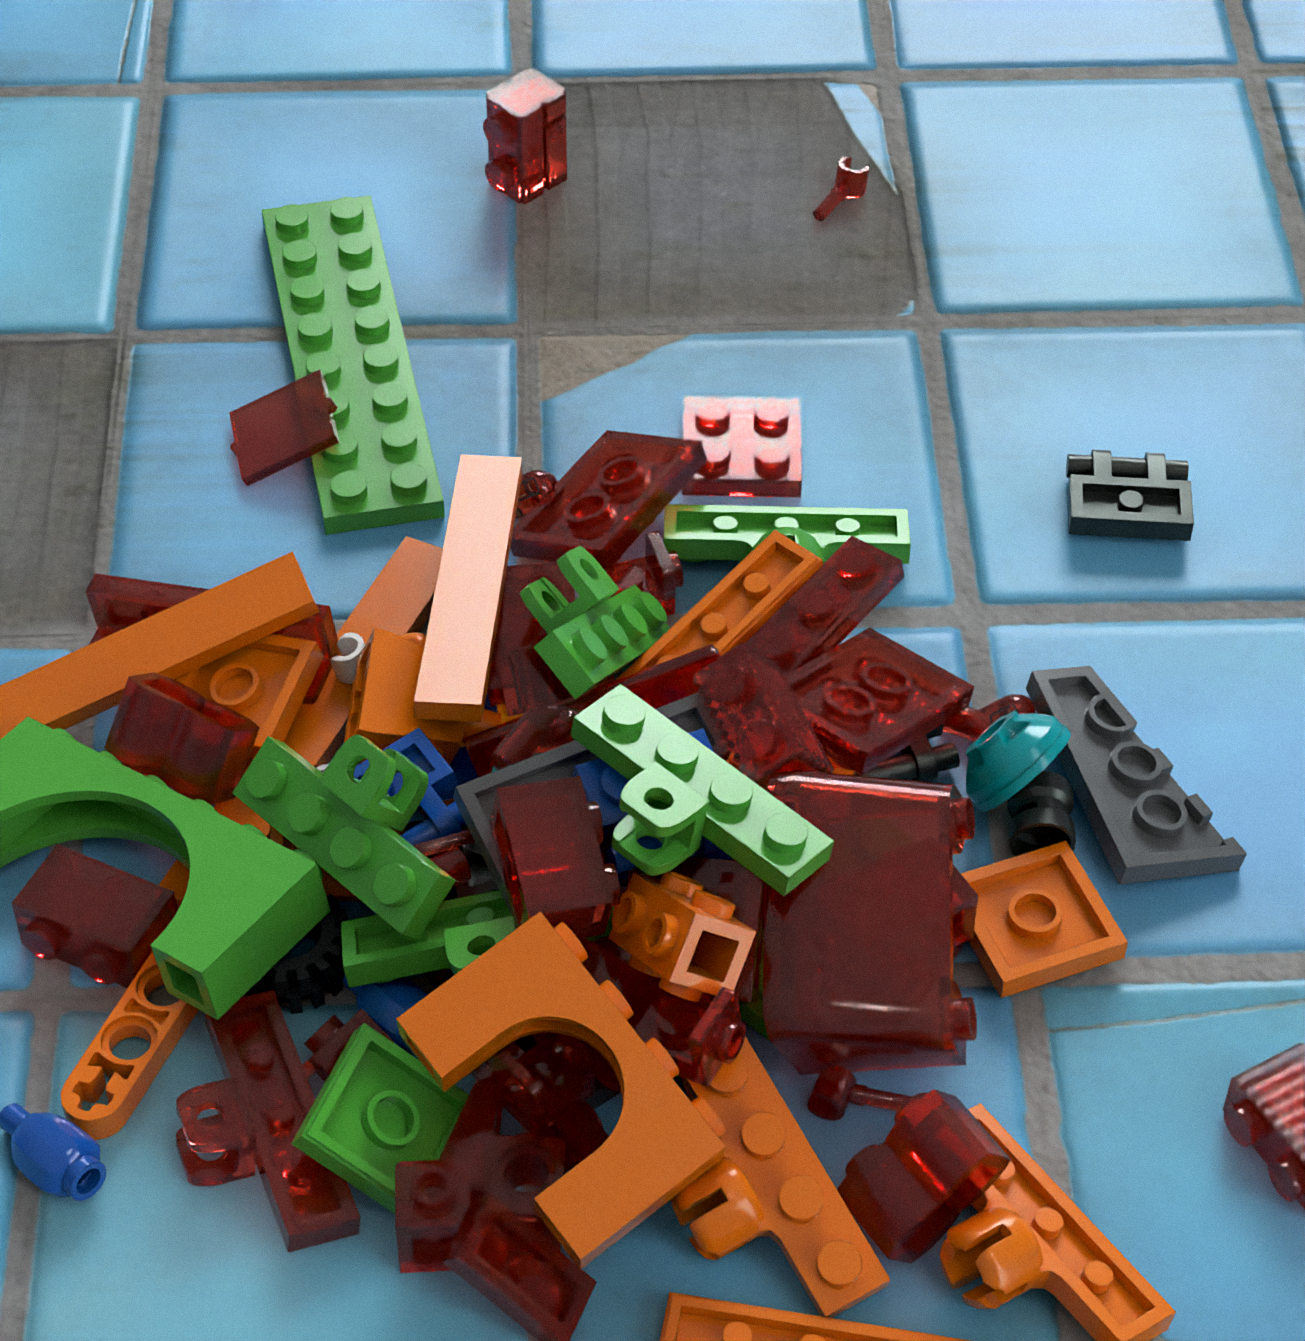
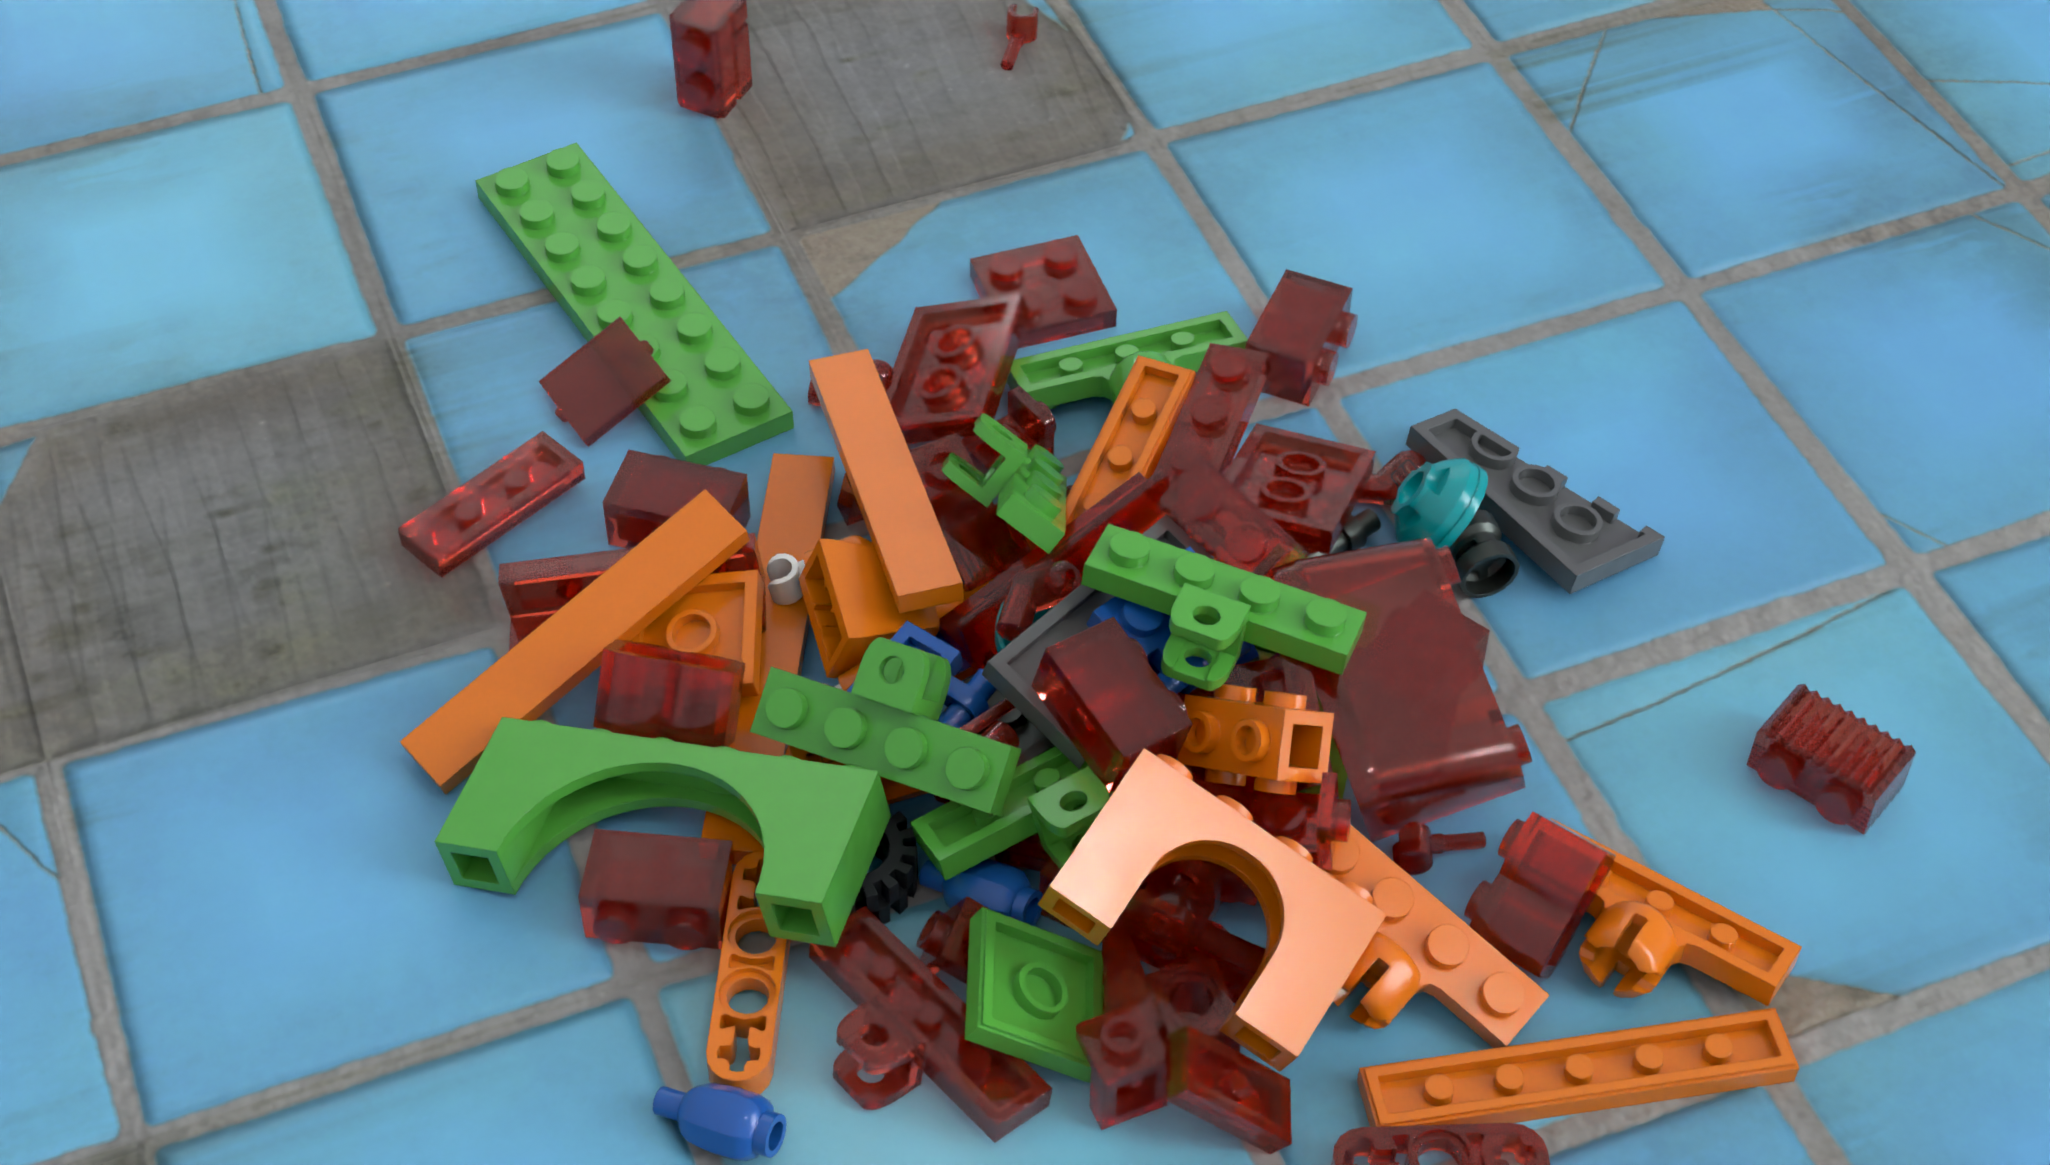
camera: 20 degrees left, 0 degrees up
(128, 516) = (491, 504): none -> clear red plate
(270, 531) = (656, 487): none -> clear red brick
(967, 553) = (1302, 334): none -> clear red brick
(1040, 920) = (1531, 643): orange plate -> none
(1129, 496) = (1412, 251): pearl dark grey plate -> none

